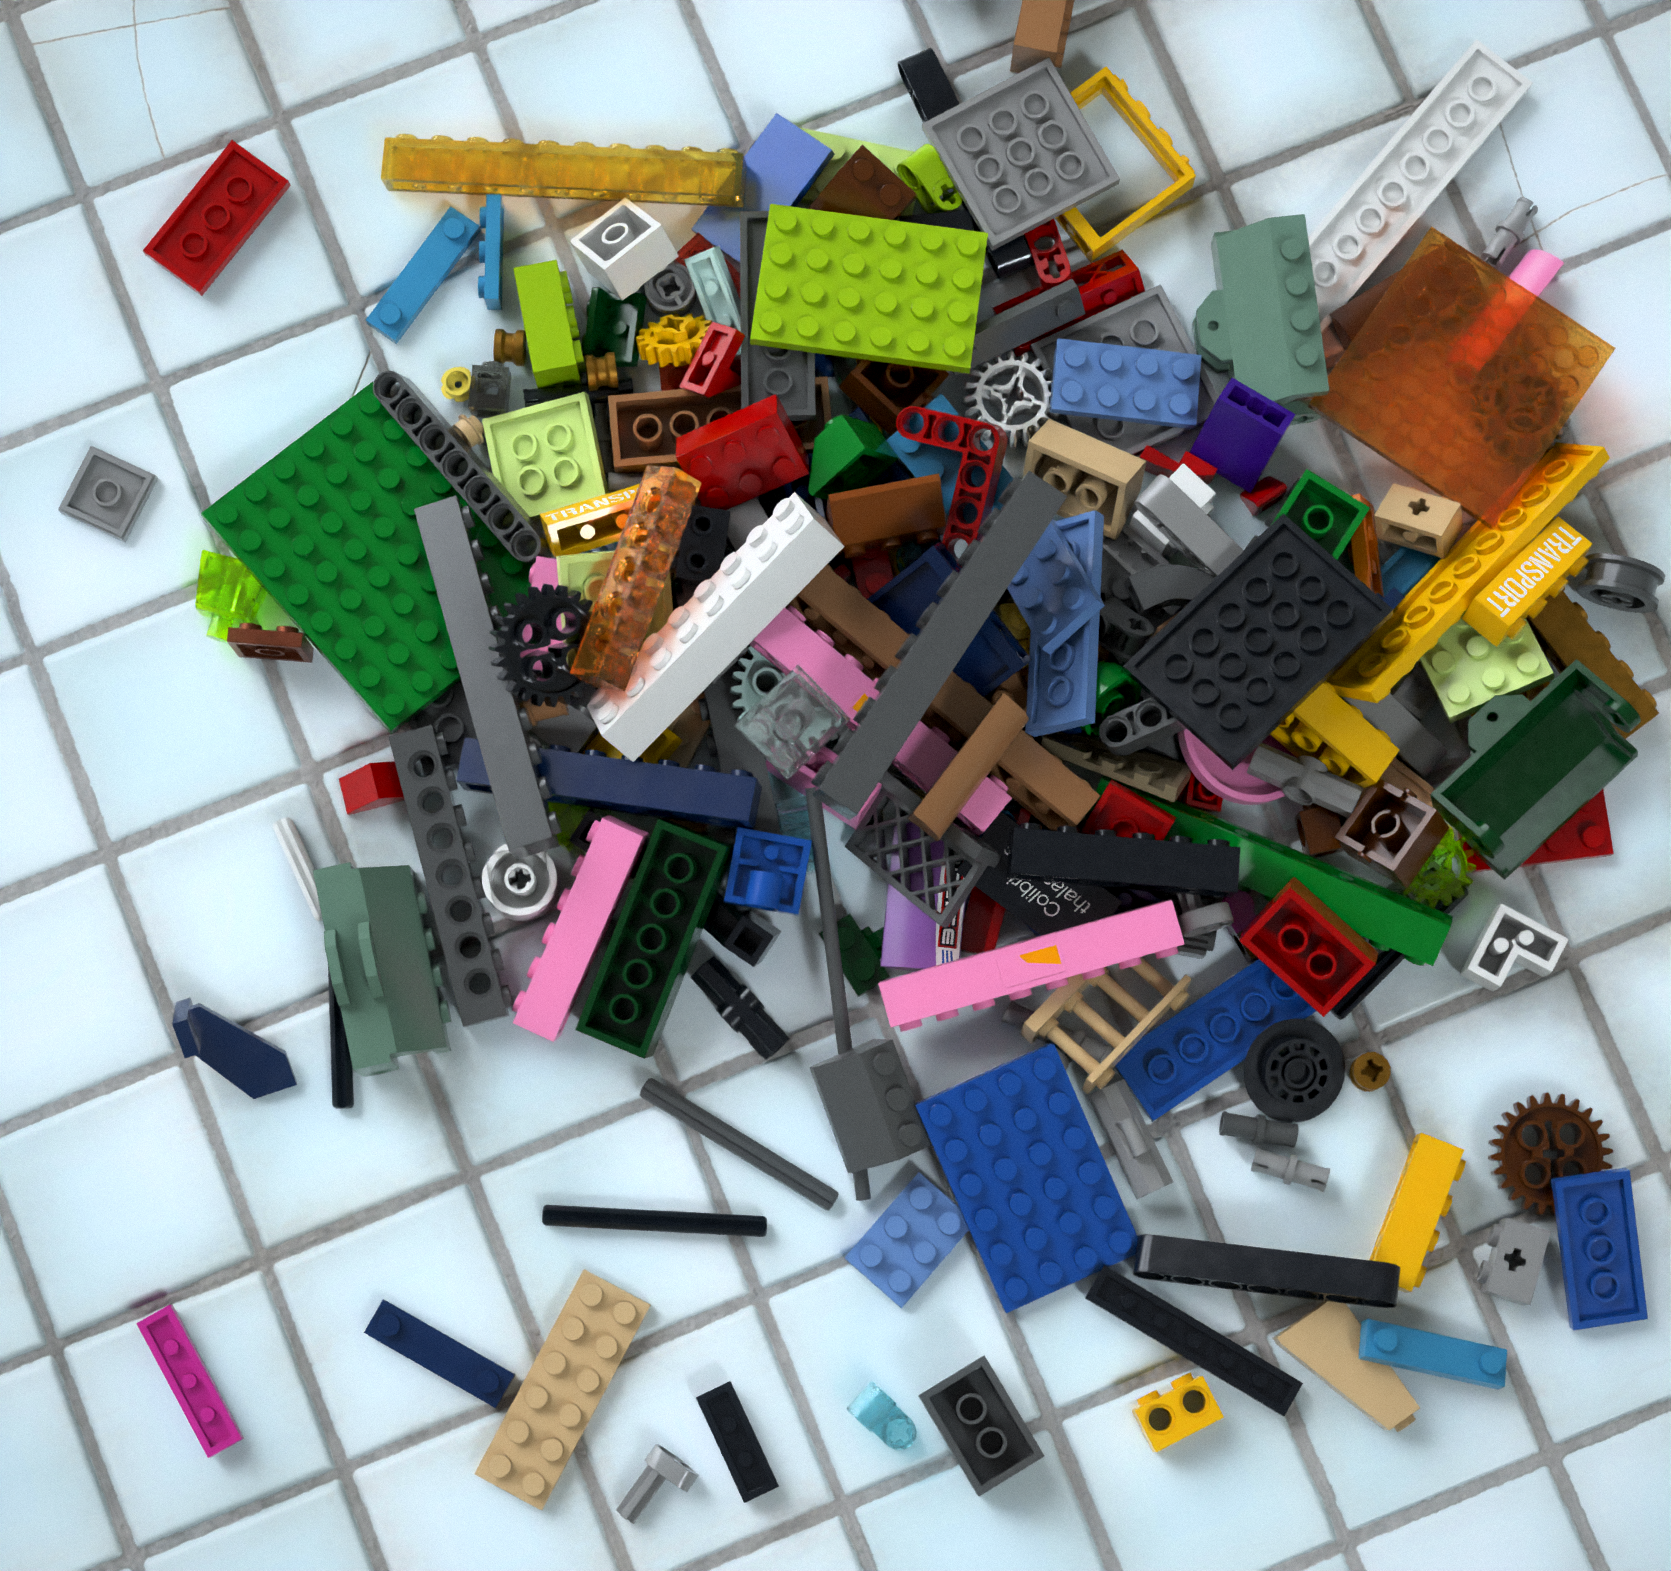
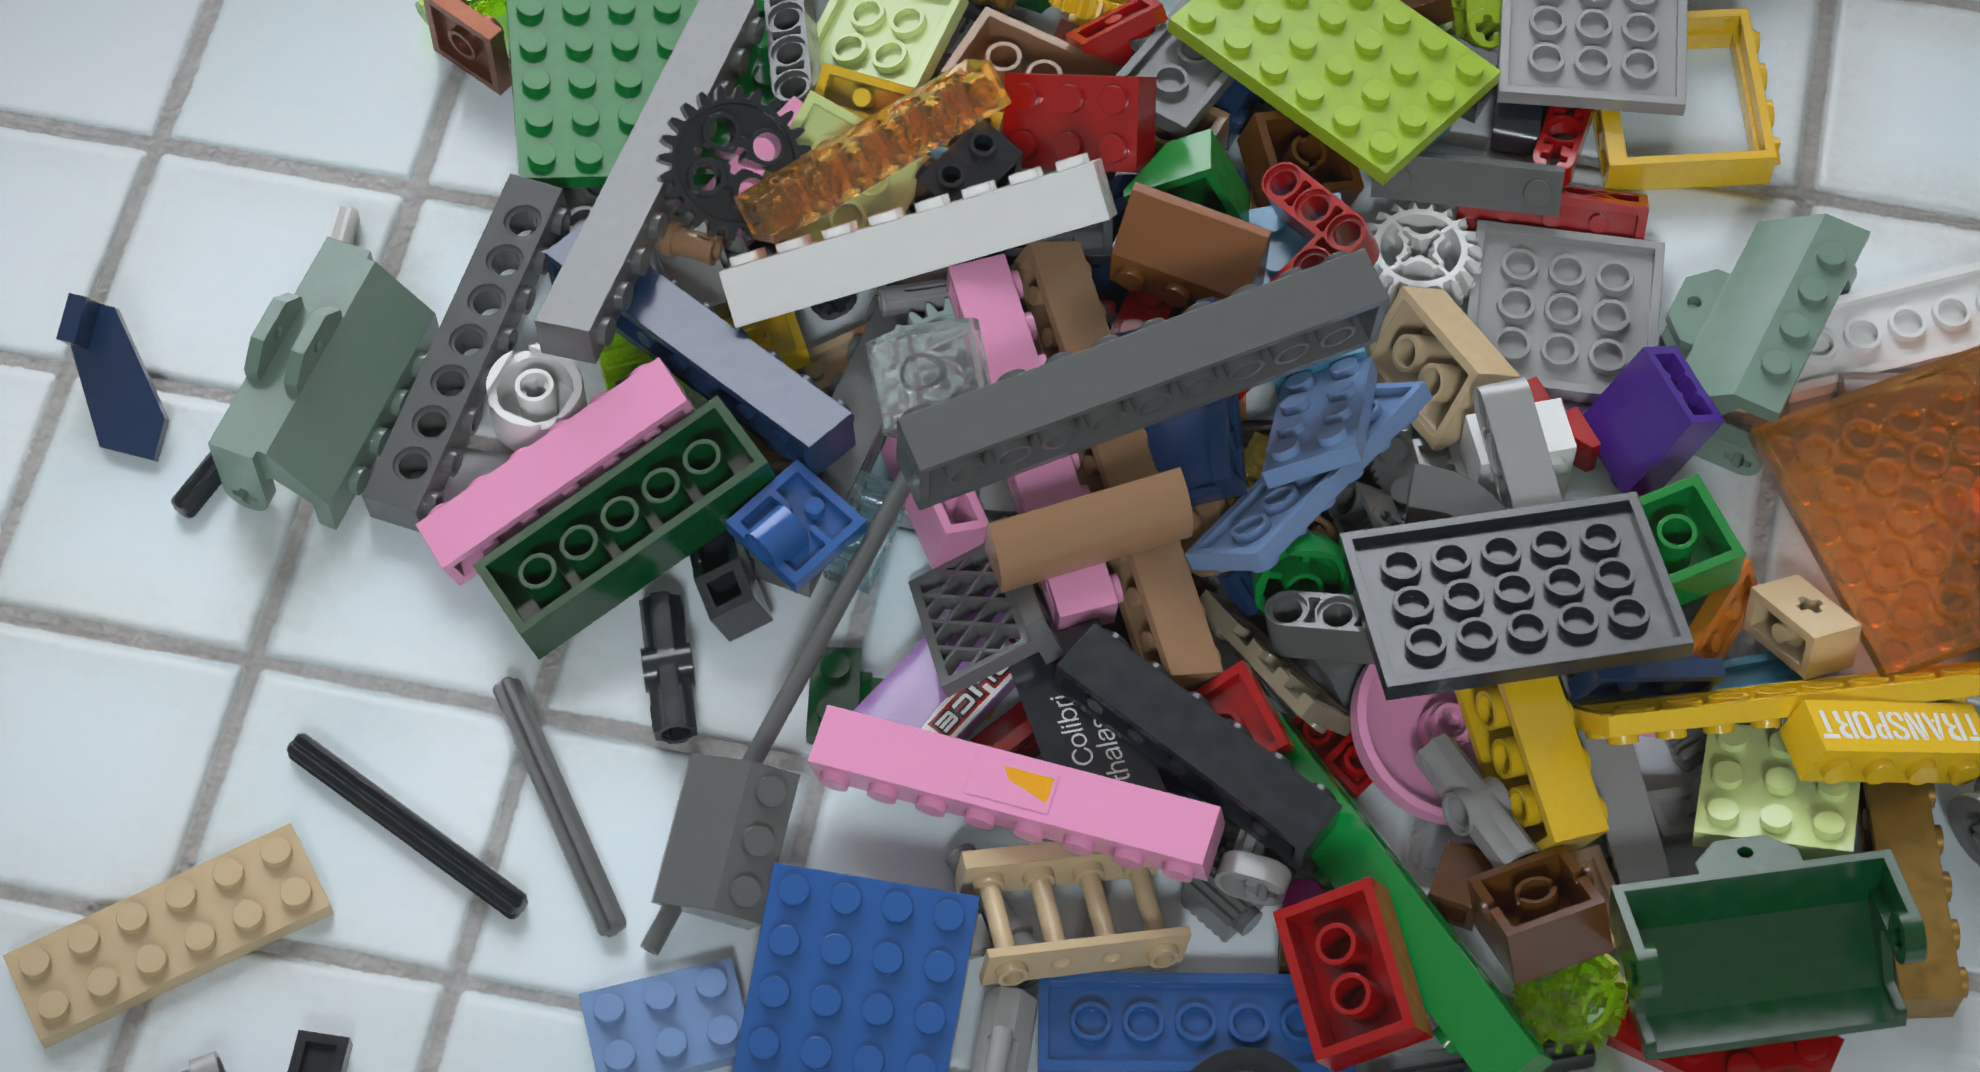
camera: 35 degrees right, 20 degrees down
(371, 787) = (457, 230): red slope -> none
(439, 1353) = (73, 814): dark blue plate -> none
(1125, 383) = (1554, 305): medium blue plate -> none

